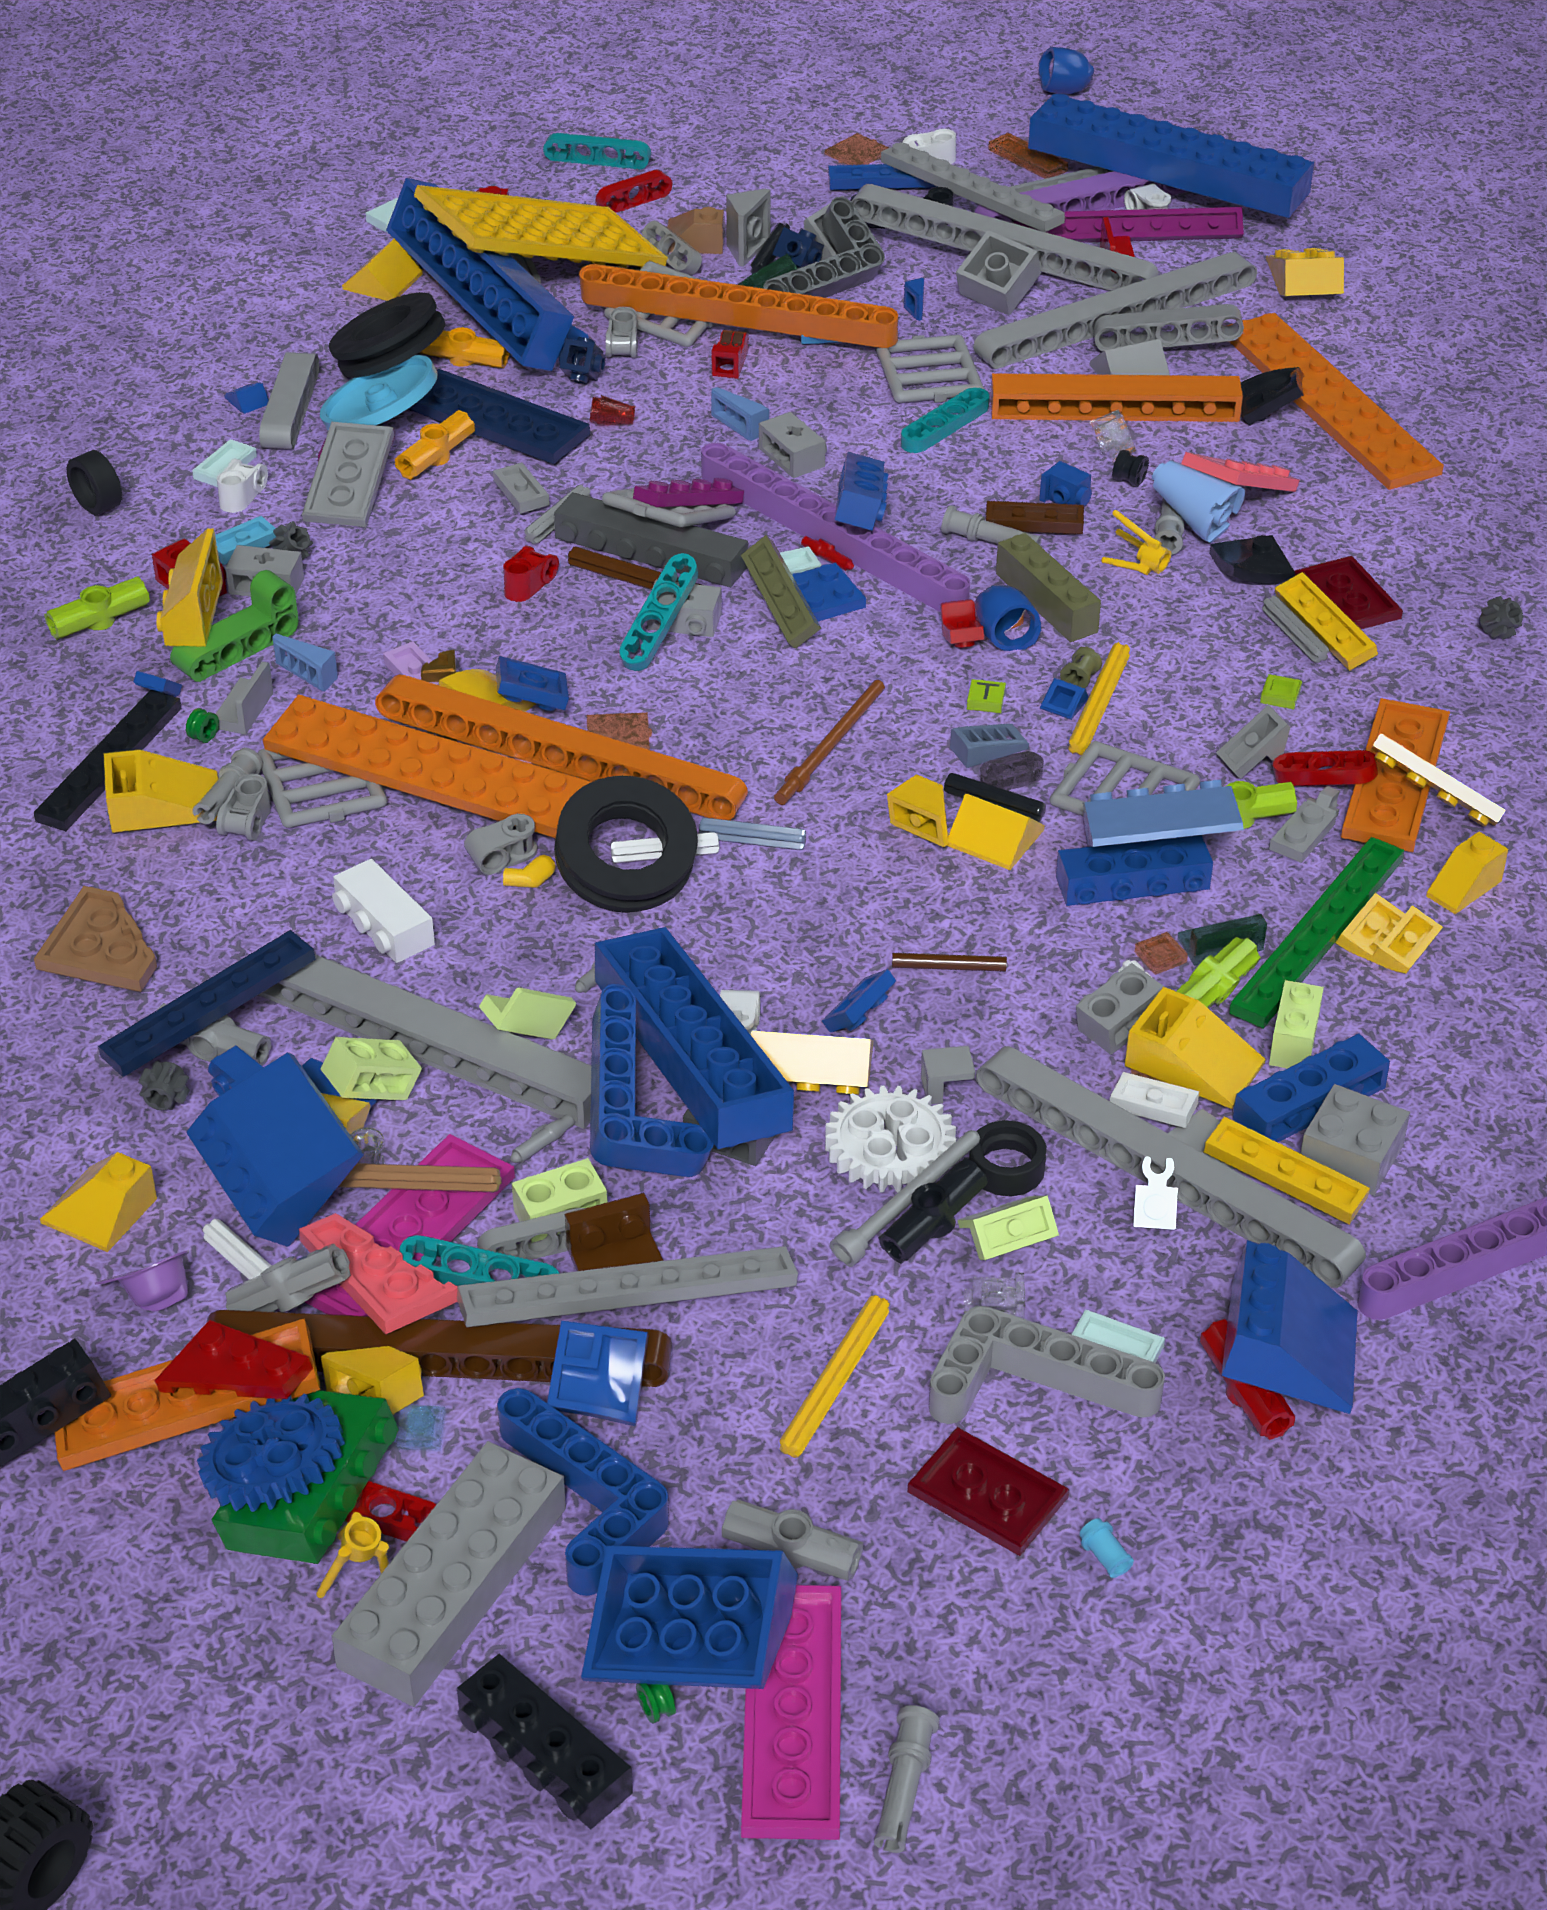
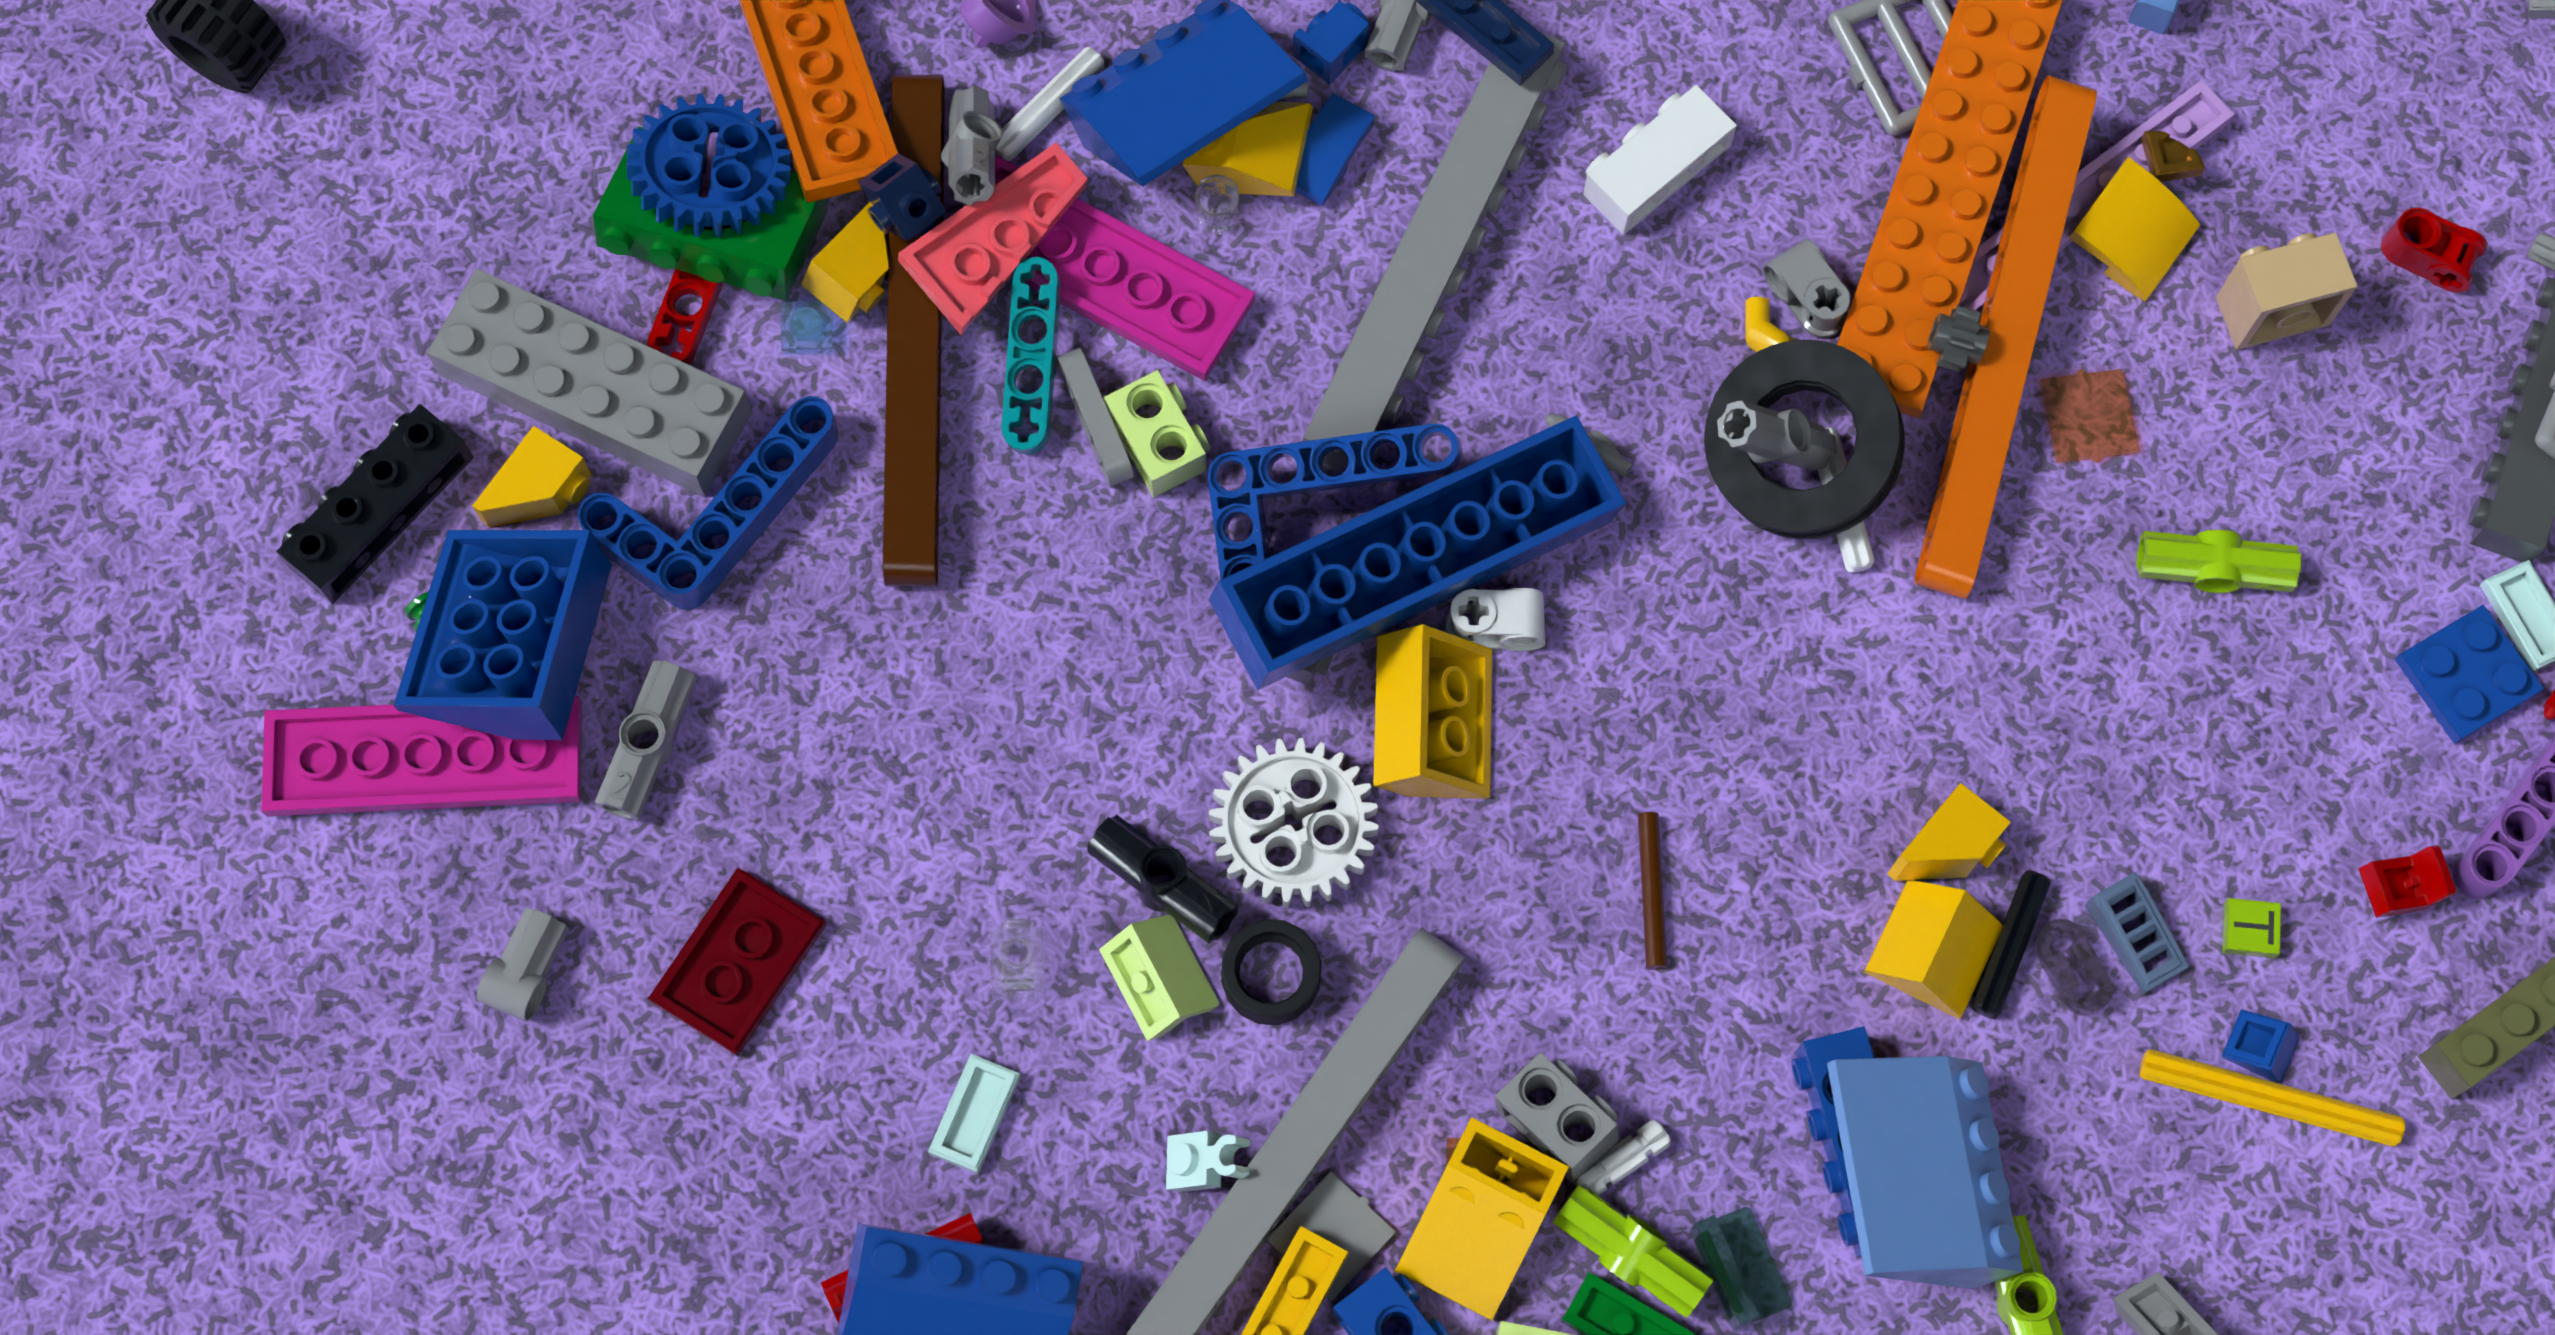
camera: 85 degrees right, 30 degrees up
(235, 1362) = (829, 106): red wing -> none
(335, 1314) = (903, 198): none -> dark blue brick
(359, 1543) = (589, 275): yellow plant -> none
(371, 1068) = (1335, 192): yellowish green brick -> none
(423, 1177) = (1159, 261): medium nougat axle -> none
(529, 1012) = (1463, 350): yellowish green panel -> none
(531, 683) = (2153, 281): blue plate -> none
(536, 1616) = (534, 482): none -> yellow slope
(541, 1138) = (1277, 405): light grey piece -> none
(551, 623) = (2285, 289): none -> tan brick
(567, 755) = (1958, 338): none -> dark grey gear
(598, 1371) = (859, 498): blue plate -> none
(611, 1234) = (1069, 511): reddish brown bracket -> none
(613, 567) = (2462, 412): reddish brown axle -> none
(626, 1286) = (1002, 524): light grey plate -> none
(628, 842) = (1776, 435): none -> light grey piece
(663, 613) = (2338, 428): teal beam -> none
(698, 614) = (2393, 454): light grey brick -> none
(734, 681) = (2218, 561): none -> lime piece
(755, 833) = (1886, 613): sand blue axle -> none
(780, 591) = (2438, 608): olive plate -> none
(800, 776) = (2015, 667): dark orange bar -> none
(834, 1376) = (904, 777): yellow axle -> none
(851, 1244) = (1106, 783): light grey piece -> none
(865, 996) = (1547, 771): blue plate -> none
(909, 1759) = (356, 882): light grey pin -> none
(942, 1066) = (1415, 887): light grey panel -> none
(1002, 609) = (2441, 937): blue piece -> none
(1002, 1637) = (518, 978): none -> light grey piece
(1042, 1355) = (923, 1012): light grey beam -> none
(1085, 667) = (2330, 1067): olive bush -> none
(1099, 1539) = (649, 1096): medium azure pin -> none
(1124, 761) = (2128, 1138): light grey bar -> none
(1155, 1099) = (1394, 1164): white plate -> none
(1161, 953) = (1702, 1182): clear orange tile -> none

